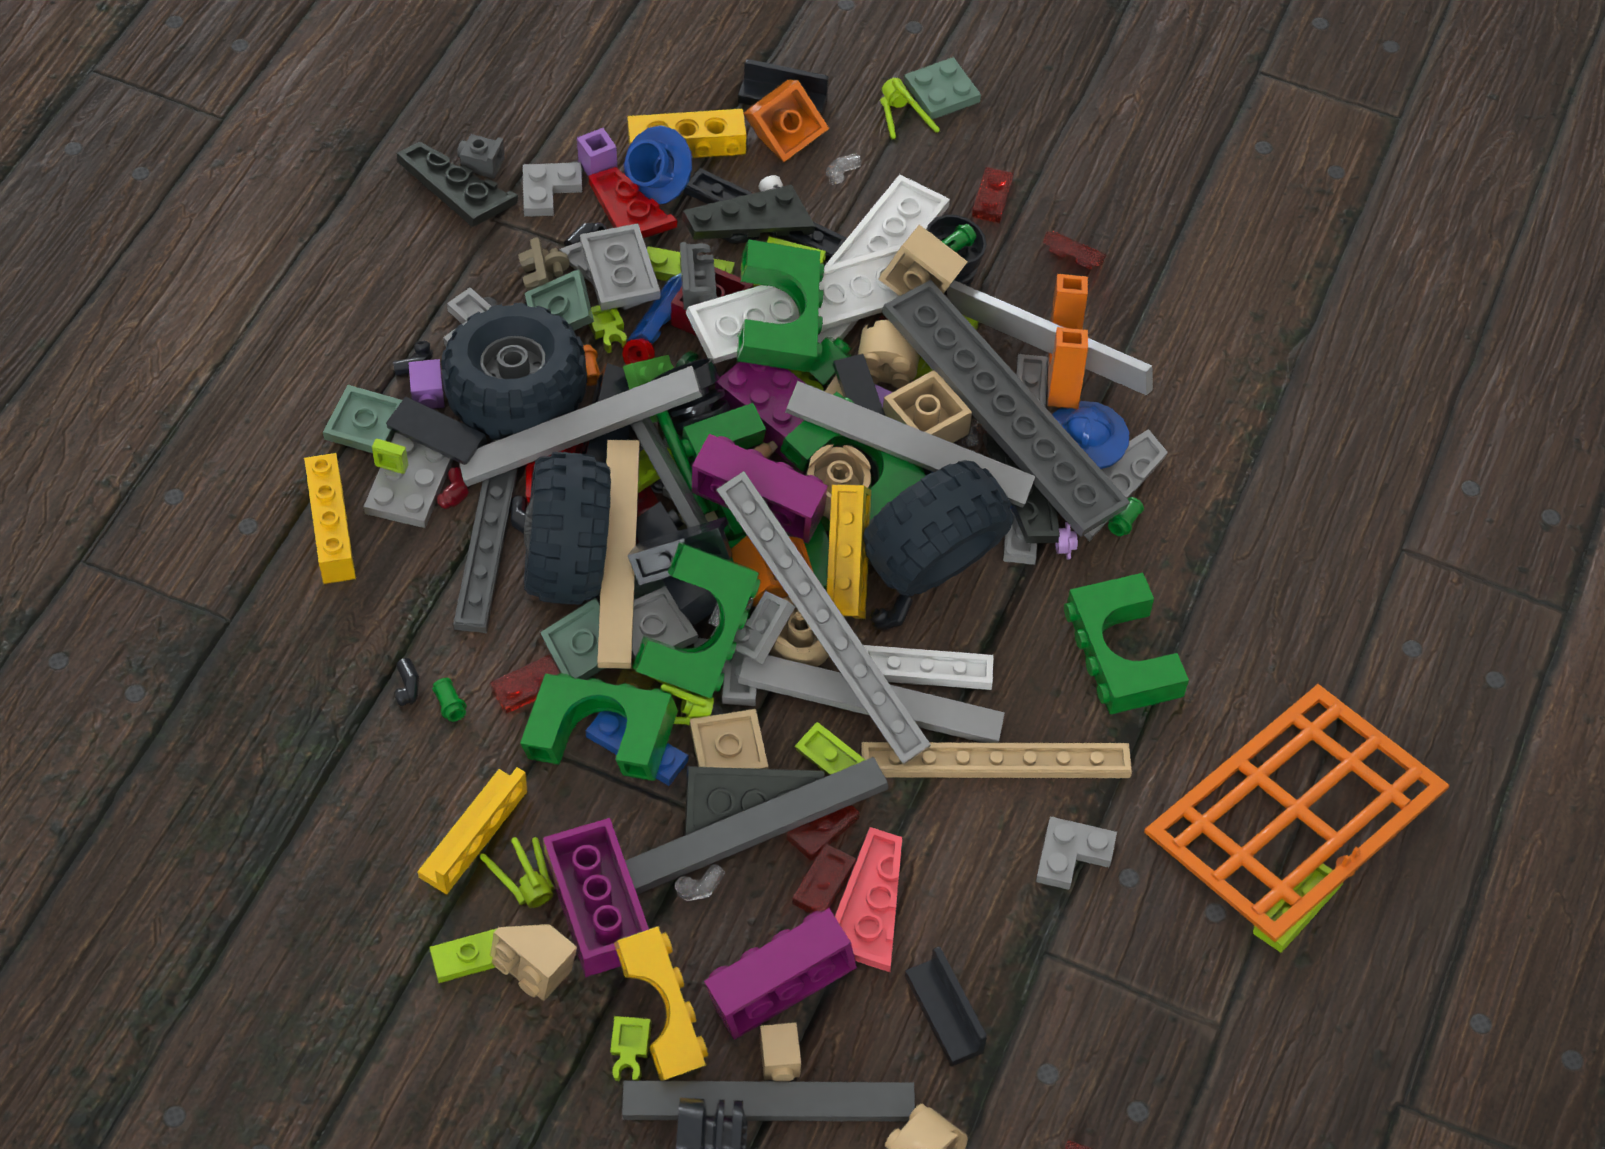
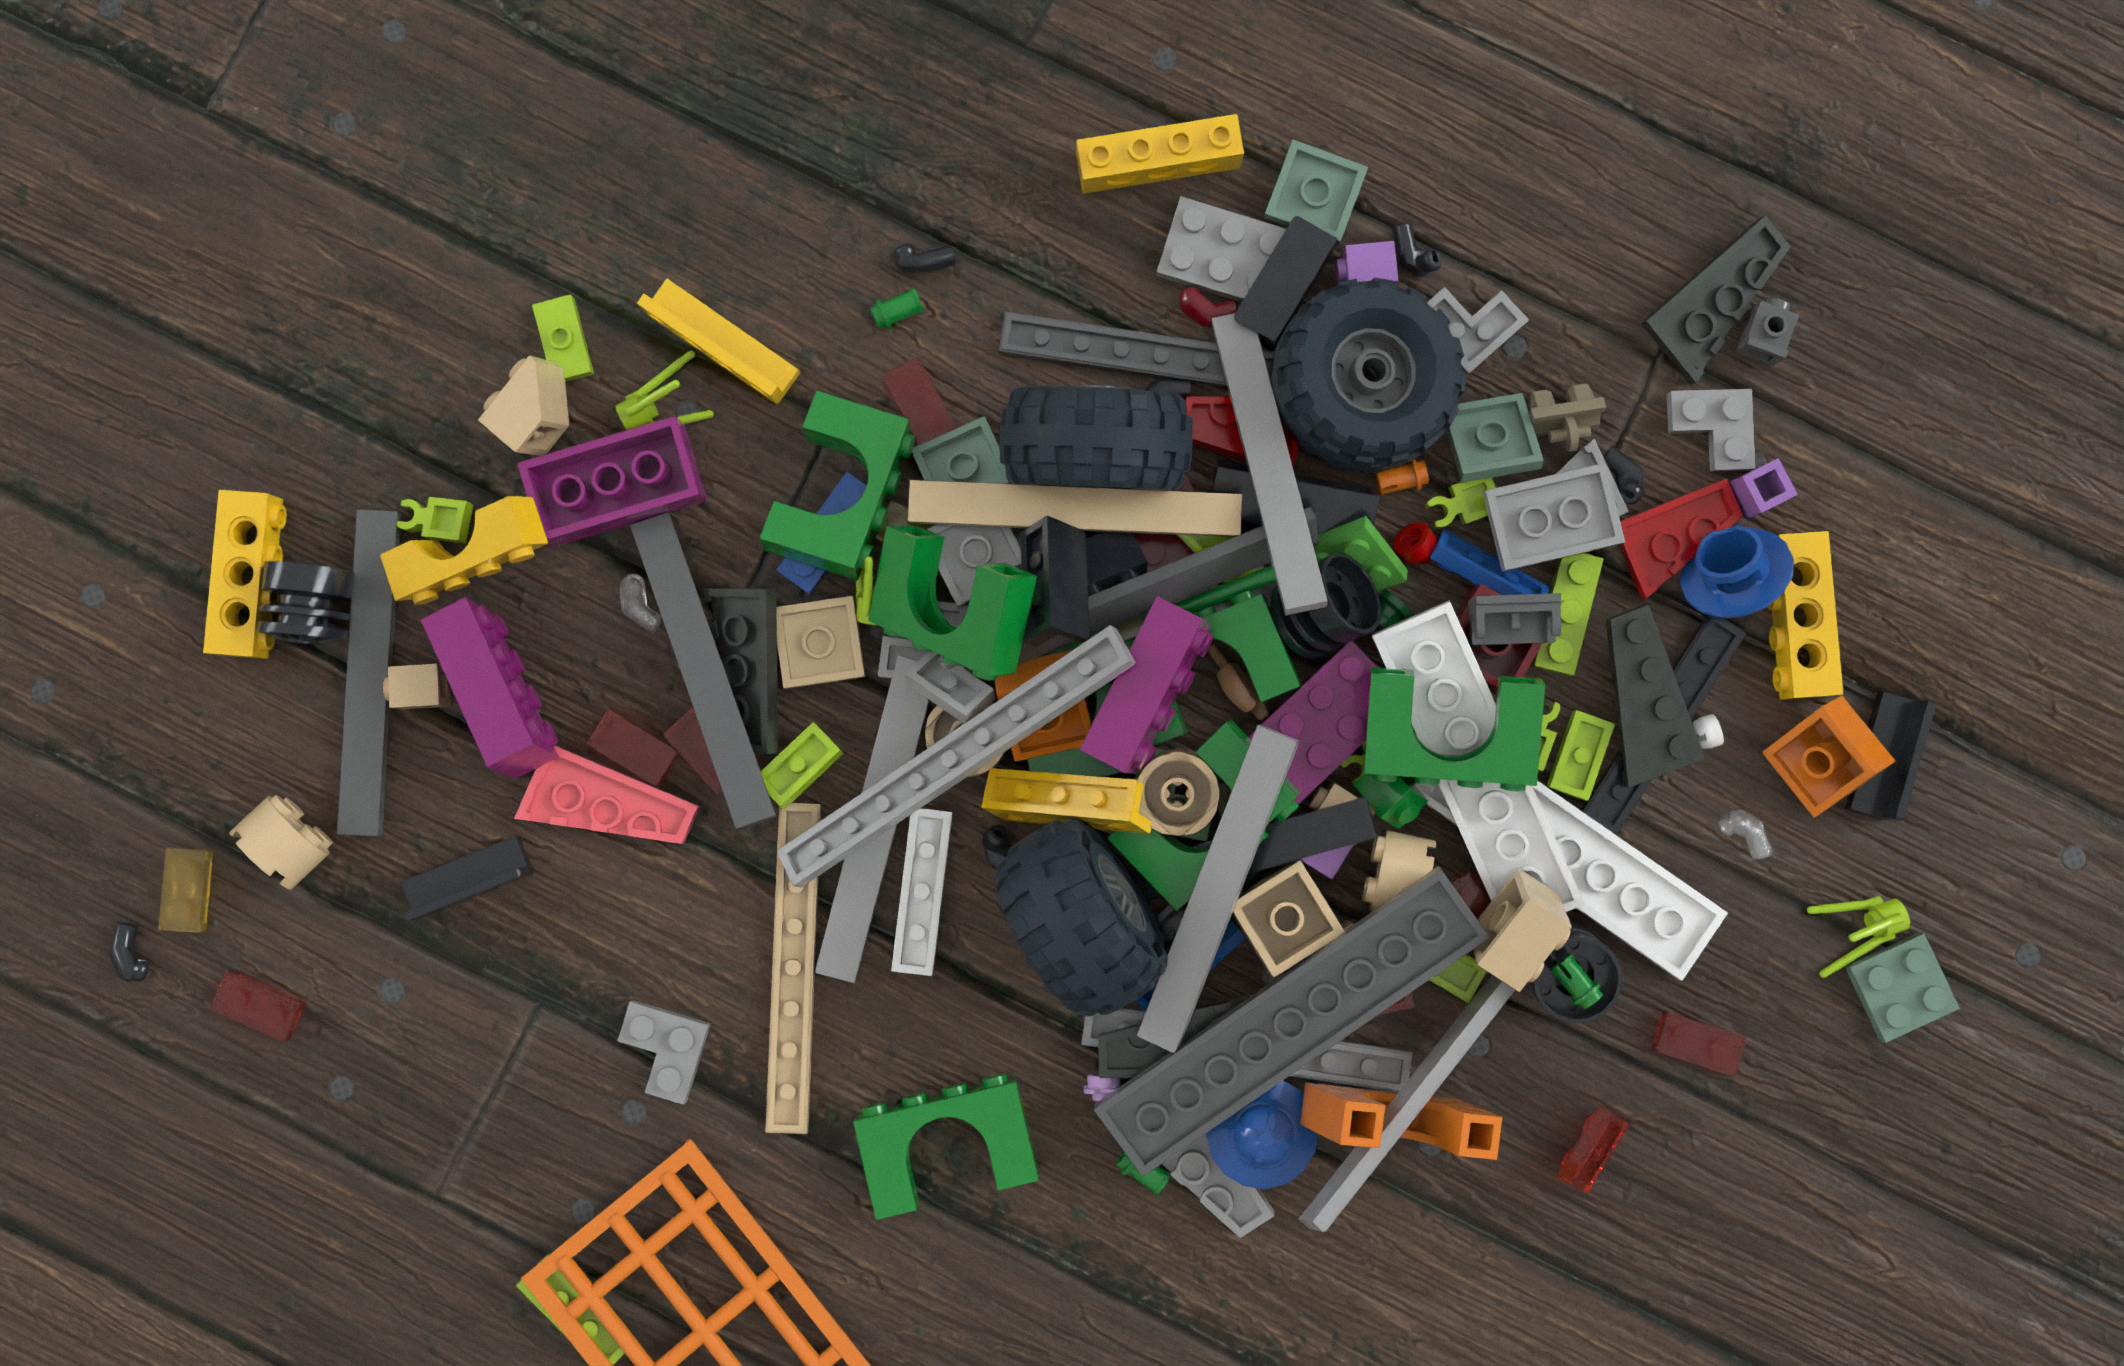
camera: 95 degrees right, 30 degrees up
(390, 456) = (1239, 221): lime tile -> none

